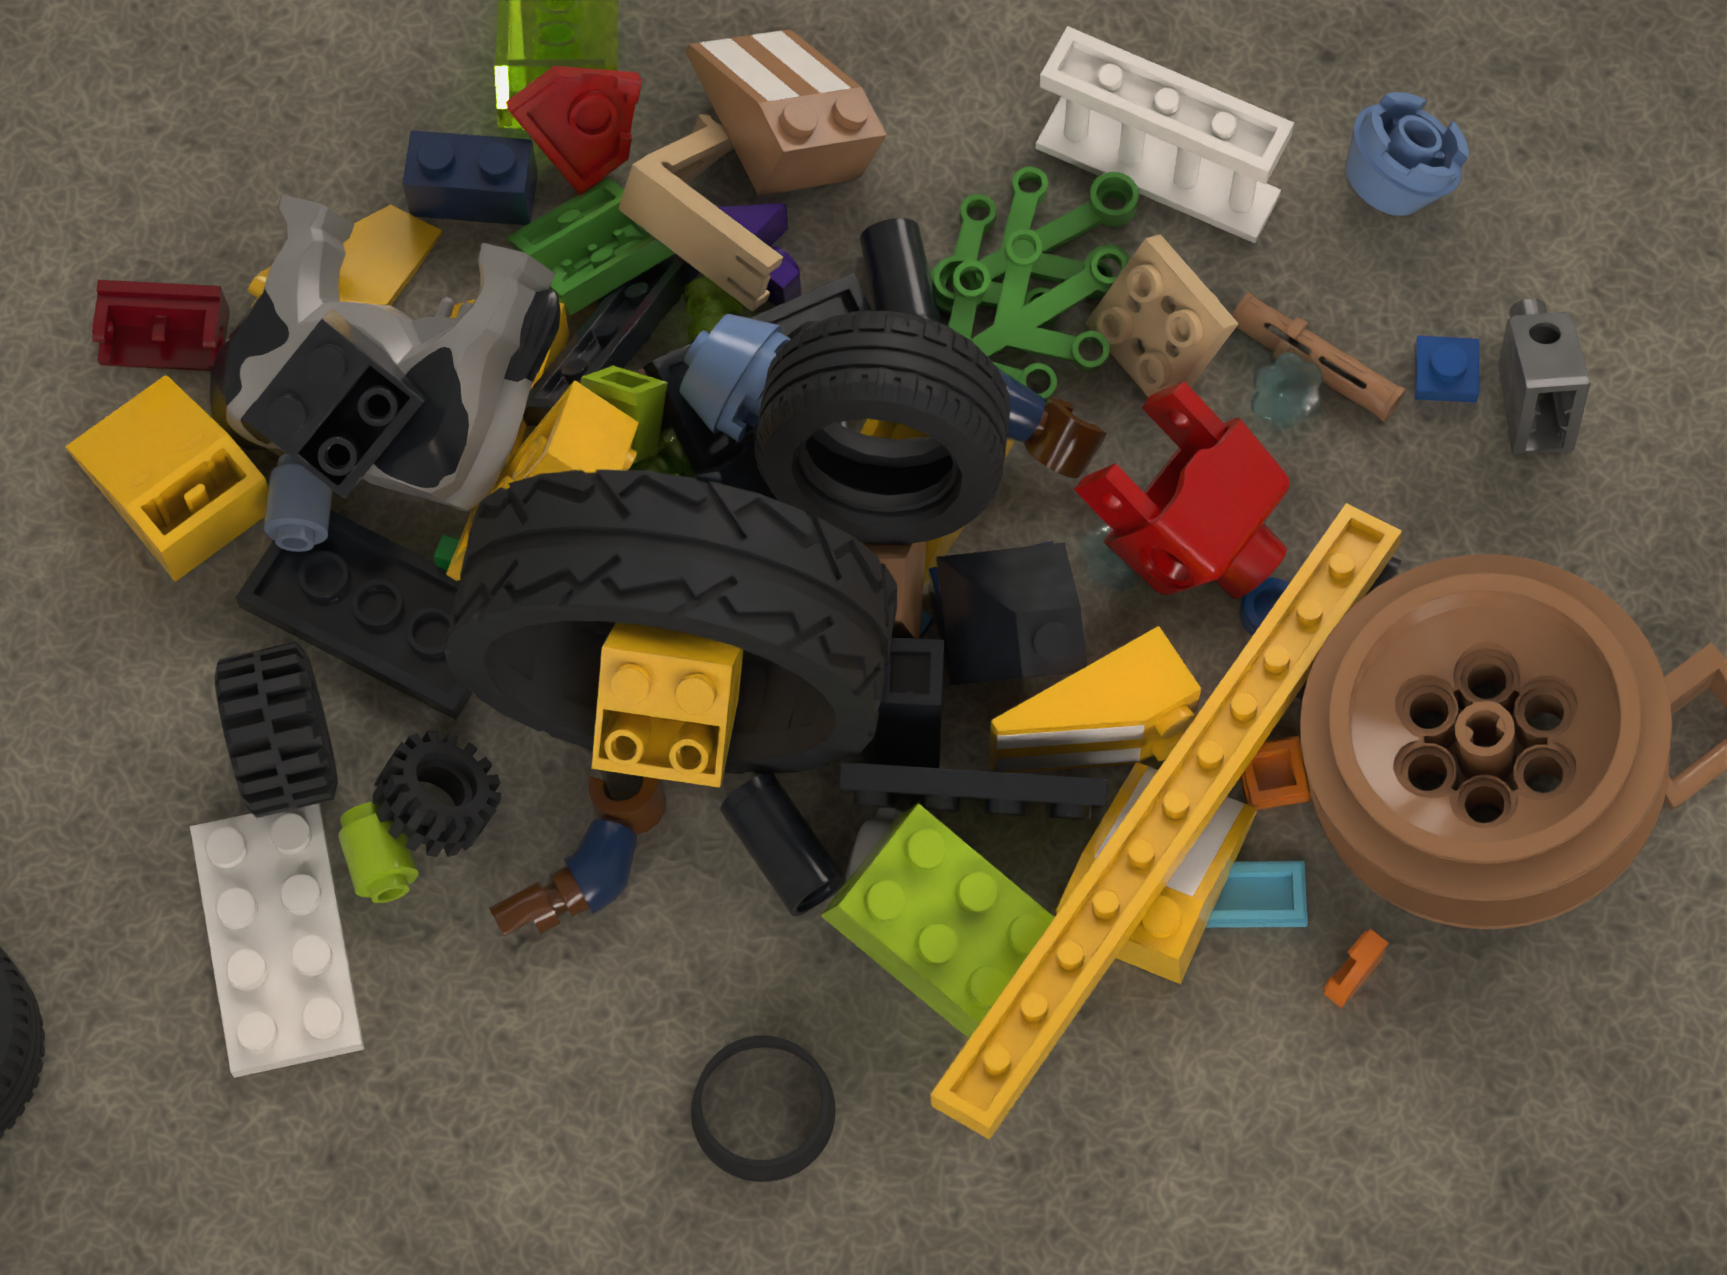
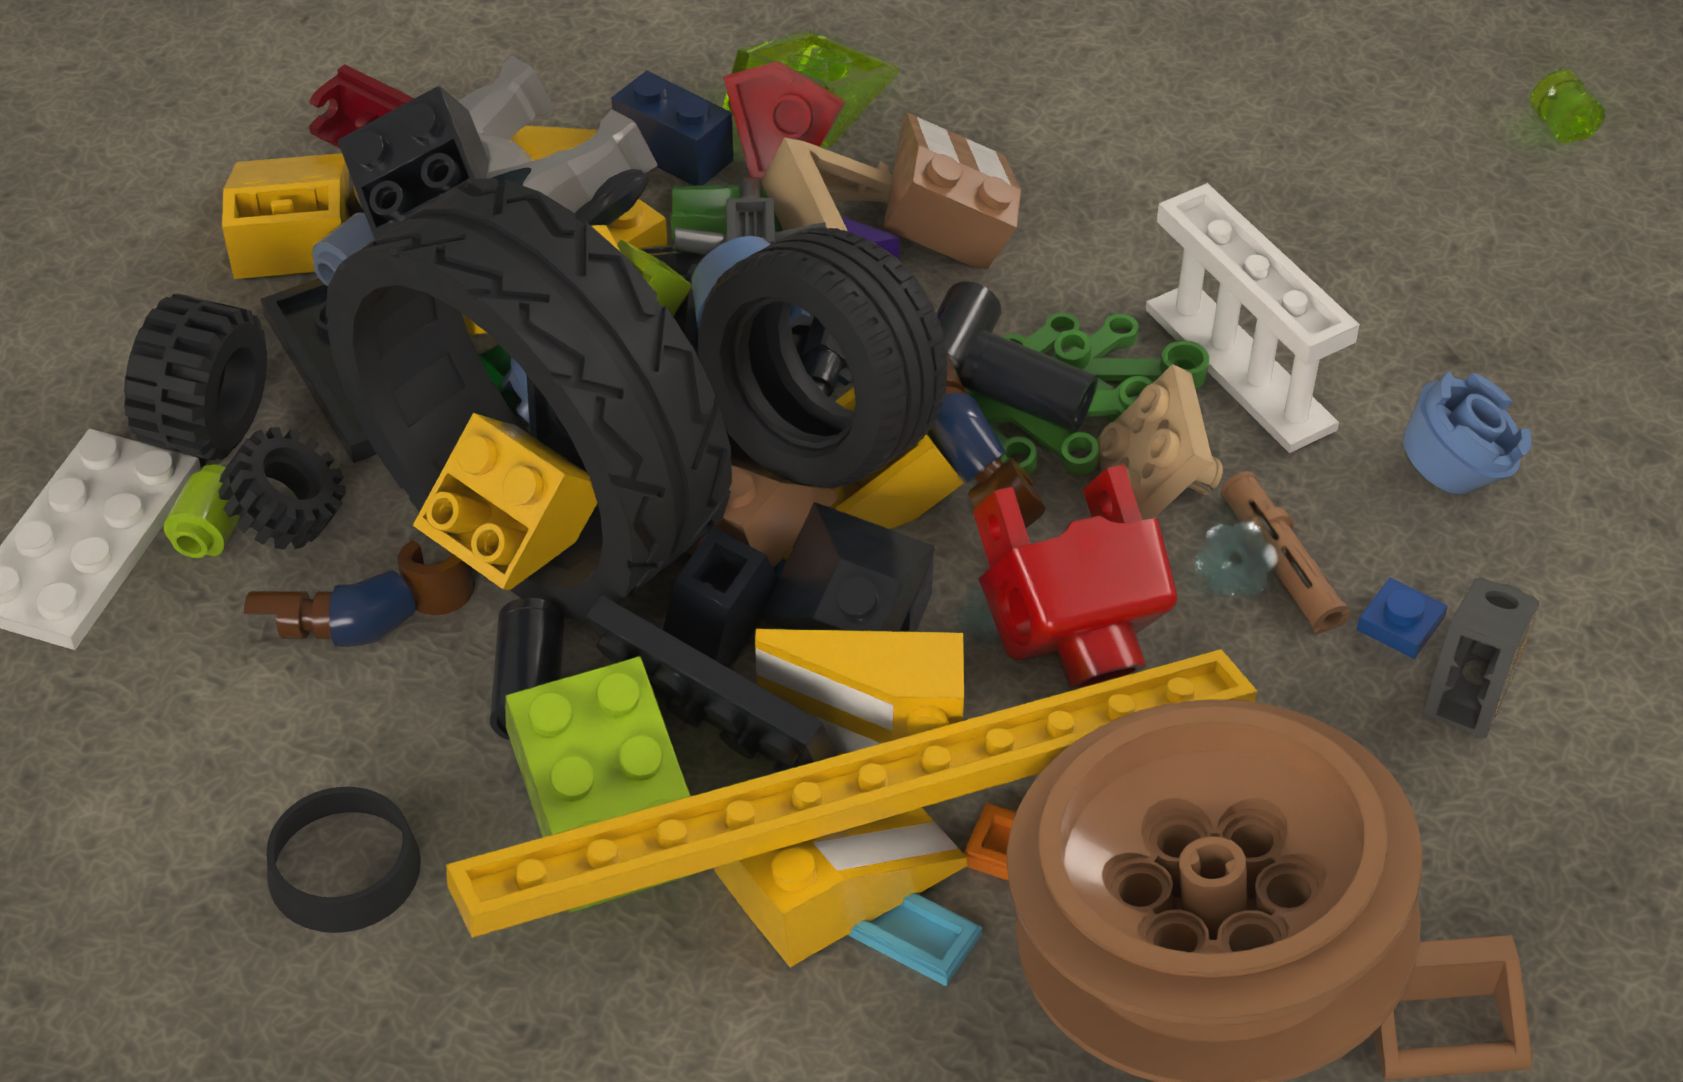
camera: 30 degrees right, 20 degrees down
(668, 284) = (745, 217): none -> dark grey piece
(1017, 309) = (1029, 381): none -> black pin
(1363, 959) = (967, 1039): orange tile -> none

